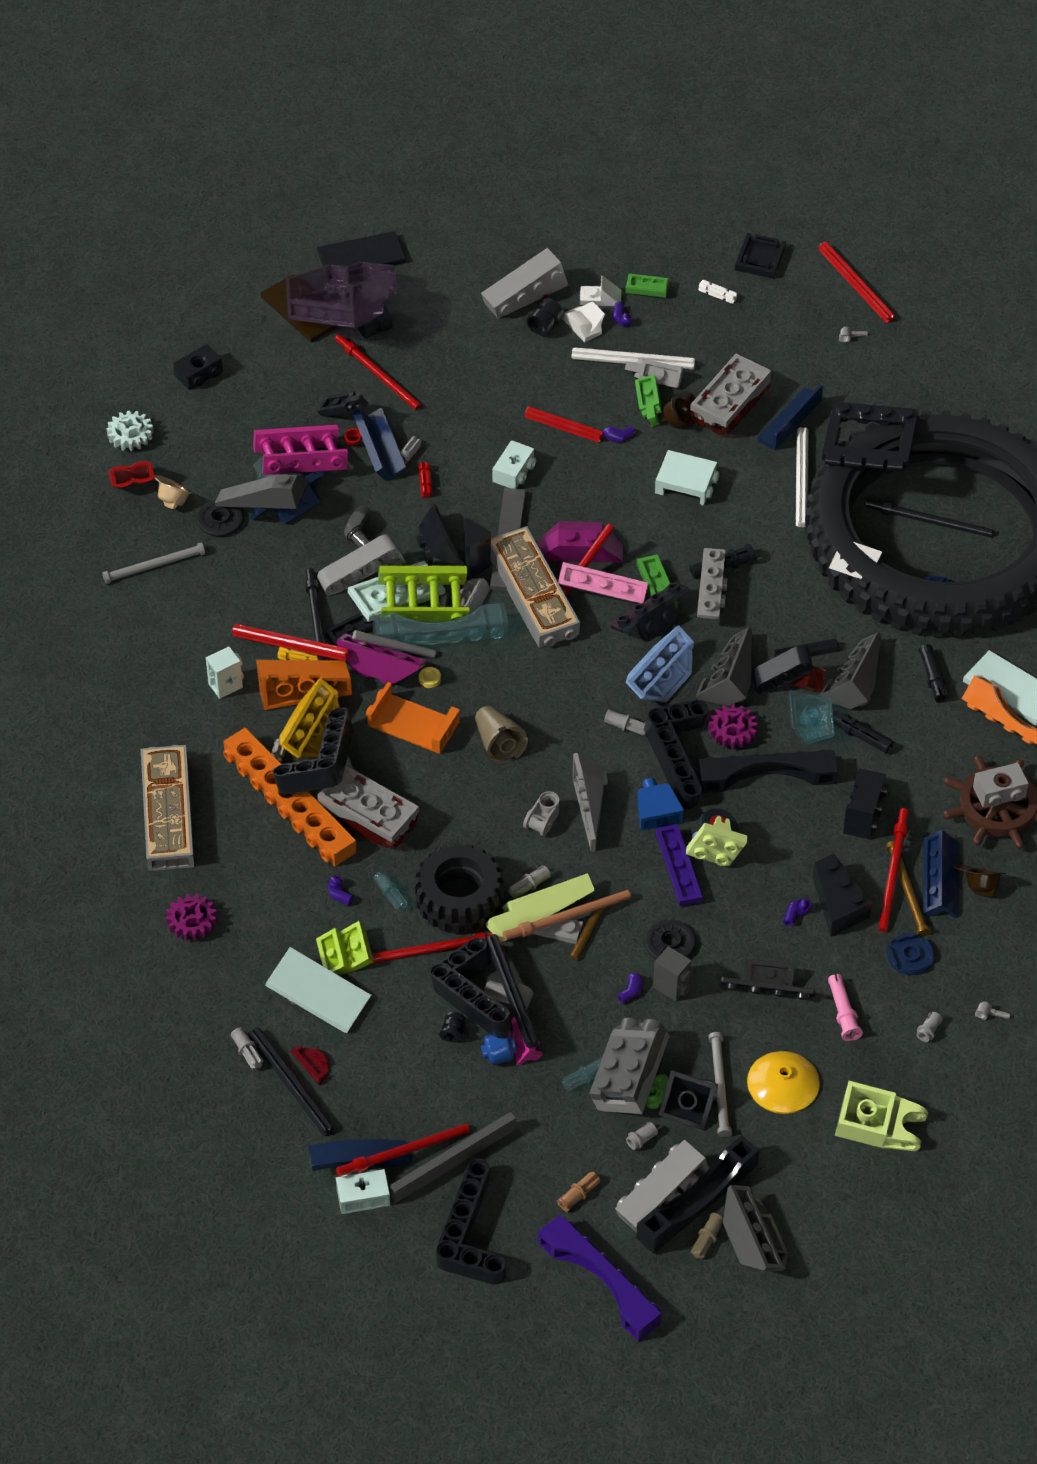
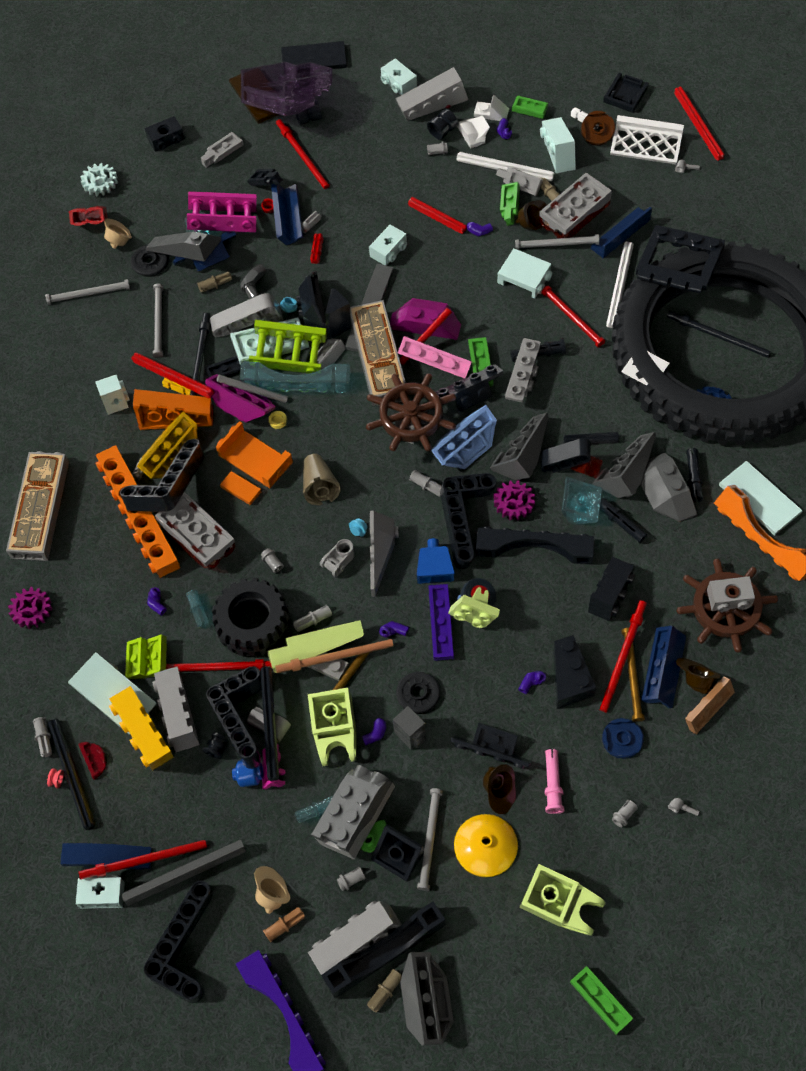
camera: 15 degrees right, 10 degrees up
(241, 549) = (158, 288): none -> light grey bar
(275, 377) = (221, 149): none -> light grey hinge
(275, 1087) = (55, 778): none -> coral bush
(309, 533) = (214, 282): none -> dark tan axle
(365, 1019) = (141, 728): none -> yellow wedge
(400, 1001) = (175, 709): none -> light grey wedge
(405, 757) = (240, 488): none -> orange tile
(409, 547) = (288, 304): none -> medium azure plate
(465, 828) = (269, 556): none -> light grey pin
(476, 267) = (398, 77): none -> light aqua brick
(545, 346) = (437, 148): none -> light grey pin
(555, 1160) = (271, 889): none -> tan piece
(558, 779) = (358, 527): none -> medium azure plate
(582, 982) = (333, 730): none -> yellowish green brick
(592, 655) = (411, 414): none -> reddish brown brick
(624, 879) = (392, 628): none -> dark purple arm
(693, 380) = (549, 190): none -> dark tan axle
(694, 324) = (559, 144): none -> light aqua wedge
(717, 437) = (557, 242): none -> light grey bar
(736, 312) = (592, 136): none -> reddish brown plate
(786, 1017) = (500, 786): none -> dark brown piece
(790, 542) = (578, 321): none -> red bar
(798, 295) = (649, 129): none -> white fence
(906, 691) = (667, 489): none -> dark grey wedge
(943, 1207) = (601, 1000): none -> bright green plate
(1000, 906) = (709, 705): none -> medium nougat plate

